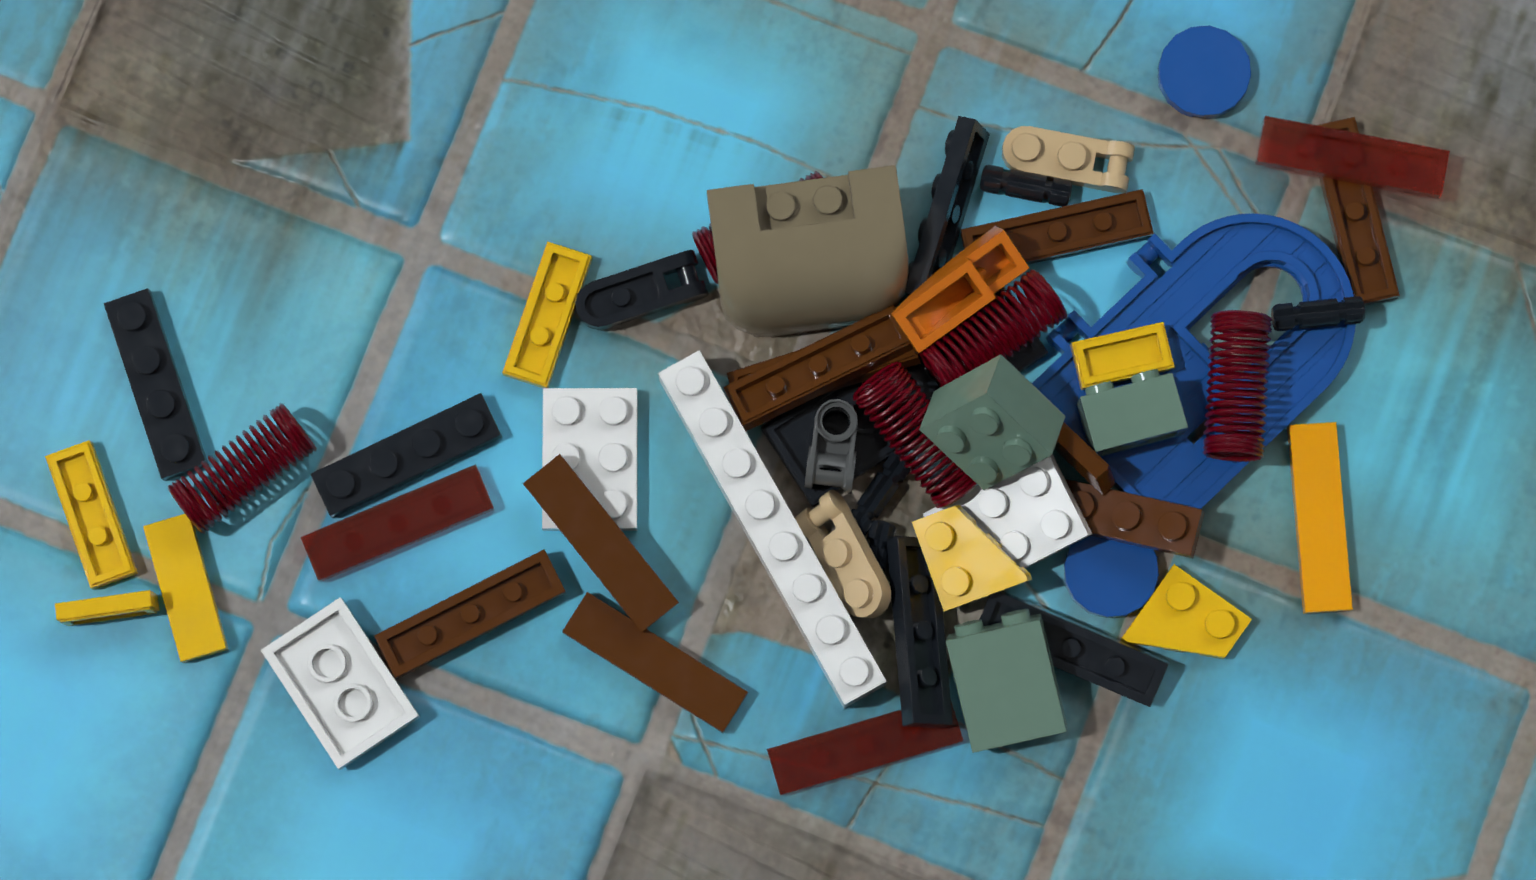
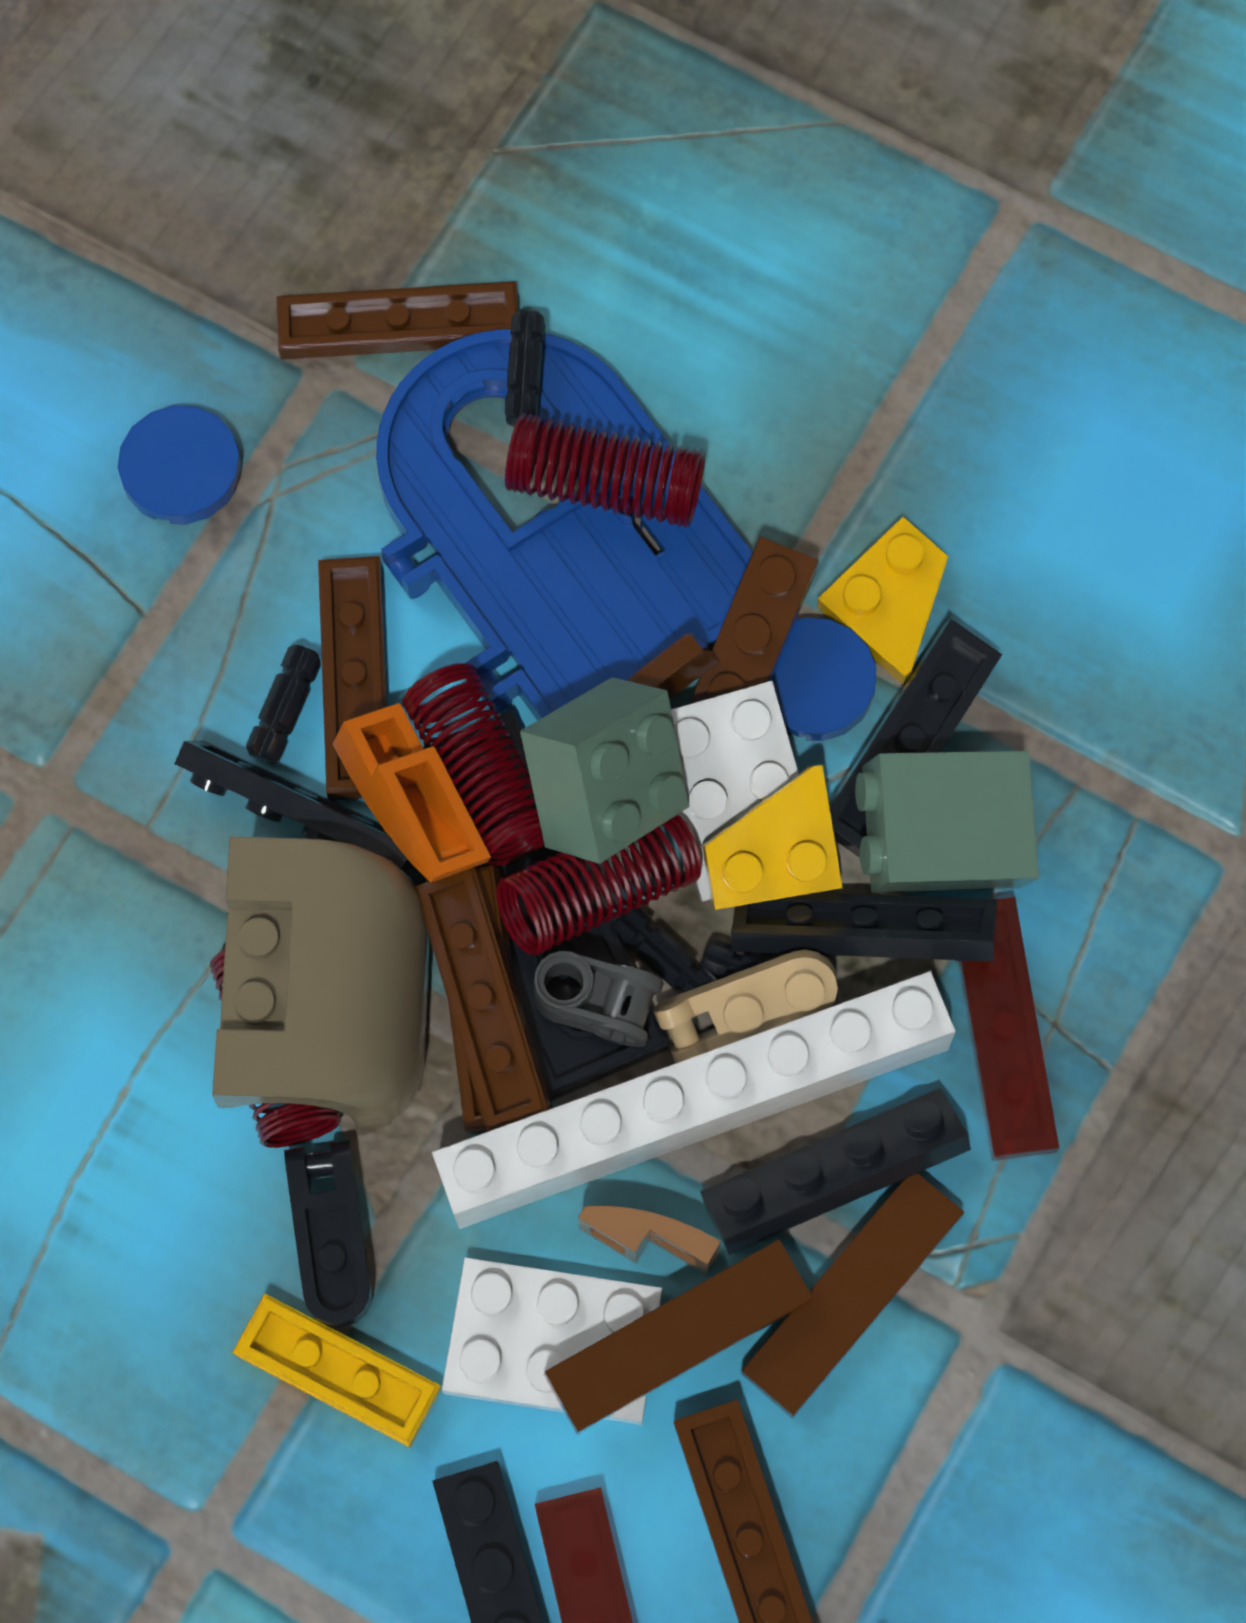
camera: 80 degrees left, 10 degrees down
(671, 501) = (632, 1229): none -> medium nougat slope
(738, 637) = (835, 1170): none -> black plate
(1068, 157) = (256, 646): tan plate -> none
(1121, 355) = (537, 611): yellow tile -> none
(1131, 413) = (619, 604): sand green brick -> none
(1319, 518) = (783, 419): light orange tile -> none
(1352, 157) = (328, 304): clear red tile -> none

